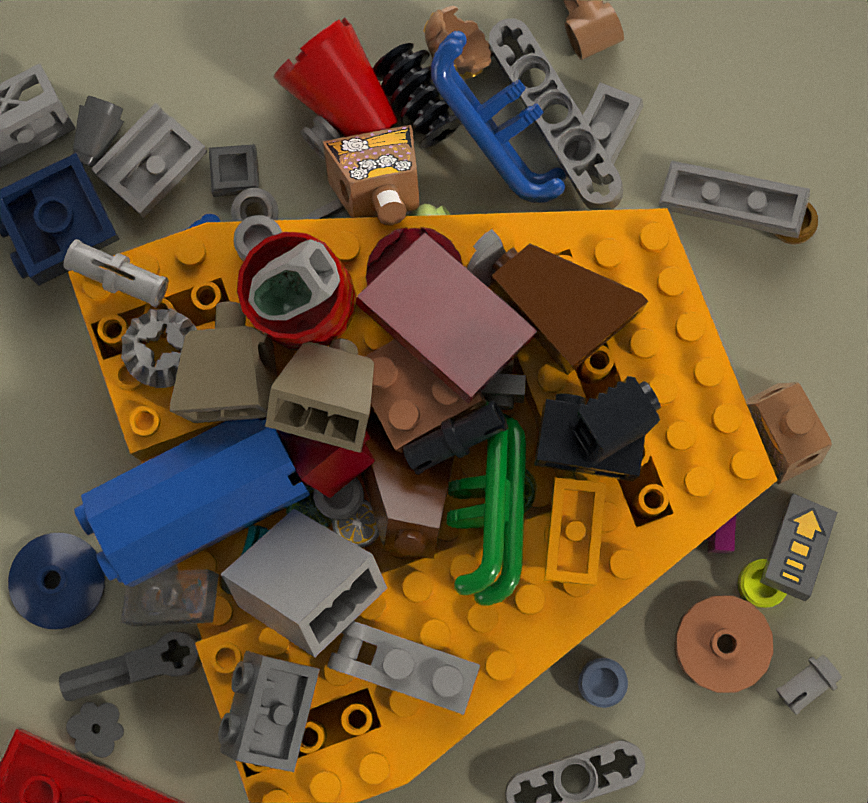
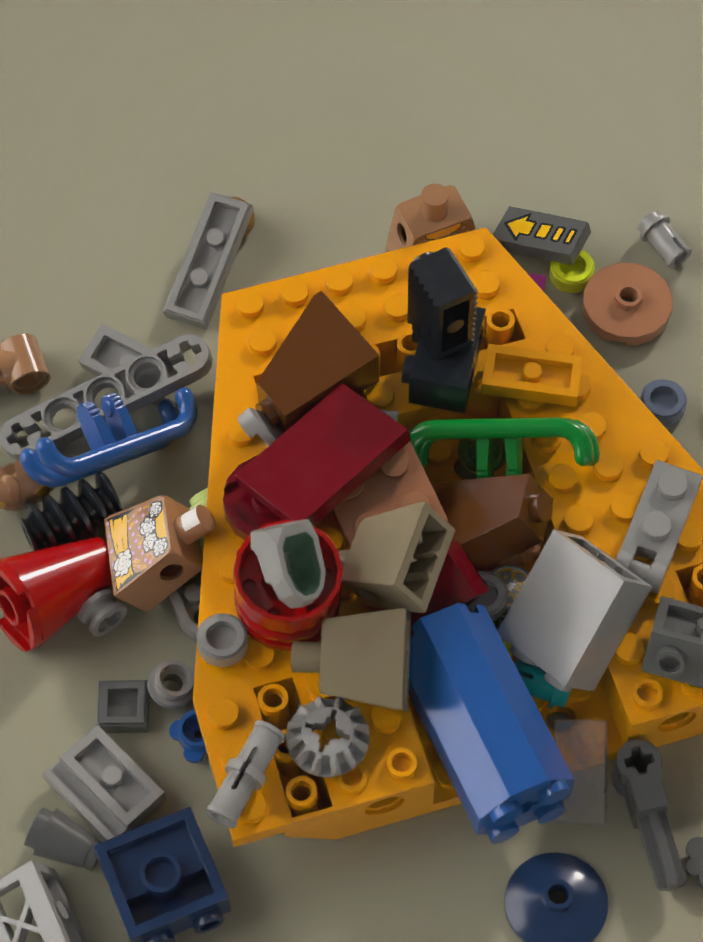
camera: 85 degrees left, 20 degrees down
(455, 437) = (440, 460): black pin -> none

